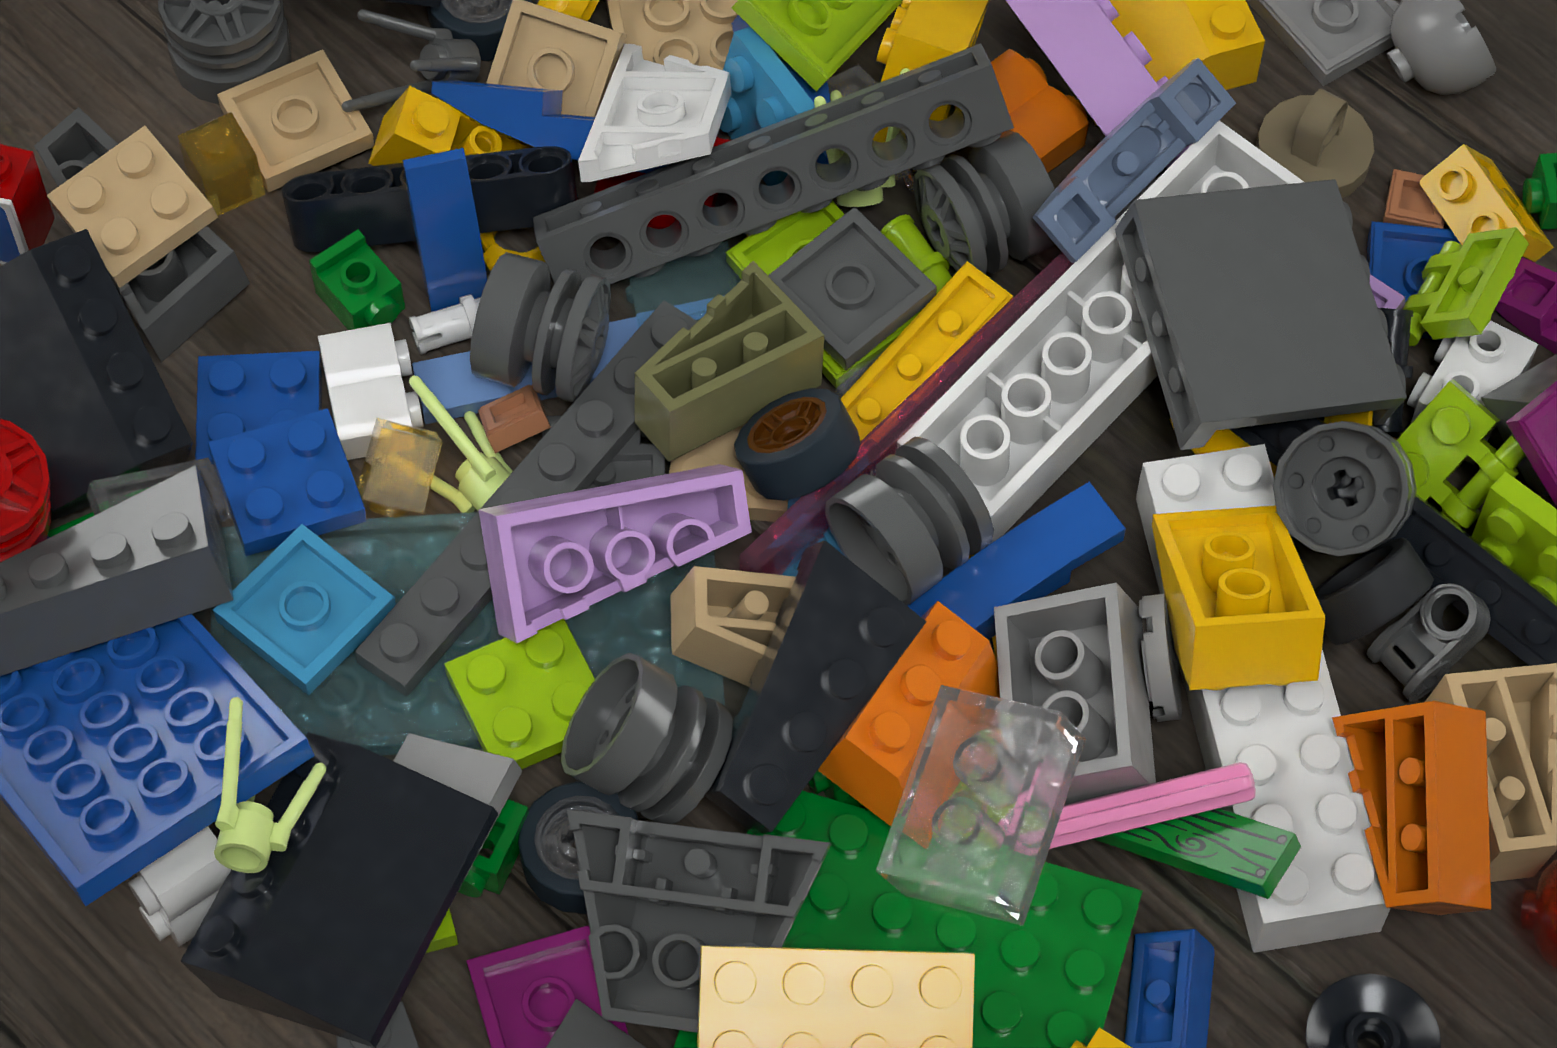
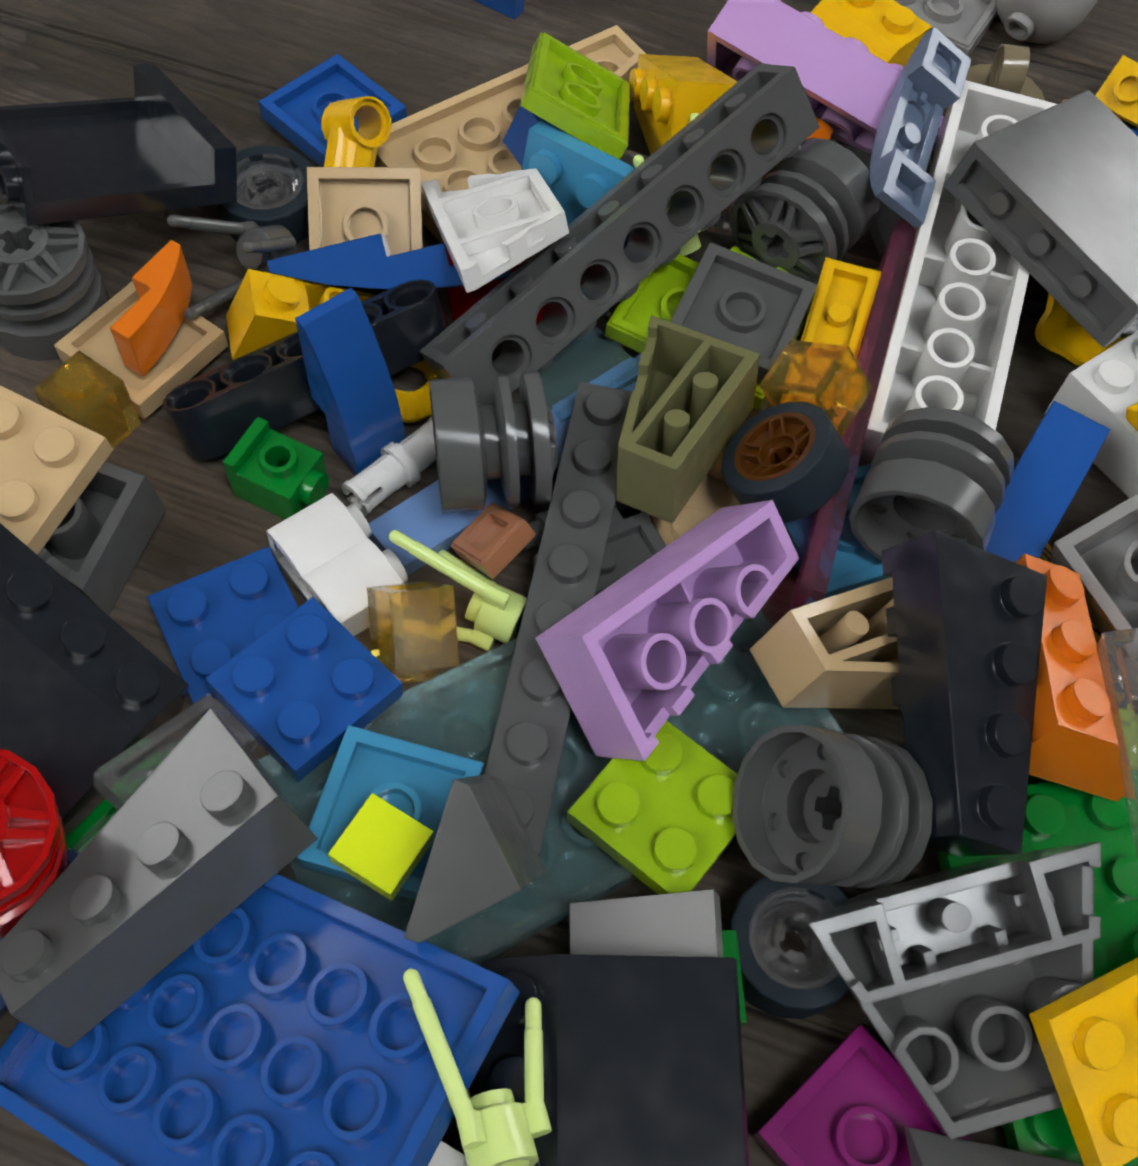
camera: 30 degrees left, 0 degrees up
(278, 625) = (381, 846): none -> neon yellow tile
(330, 80) = (155, 318): none -> orange slope
(337, 654) = (475, 857): none -> dark grey slope
(865, 384) = (819, 375): none -> clear yellow brick

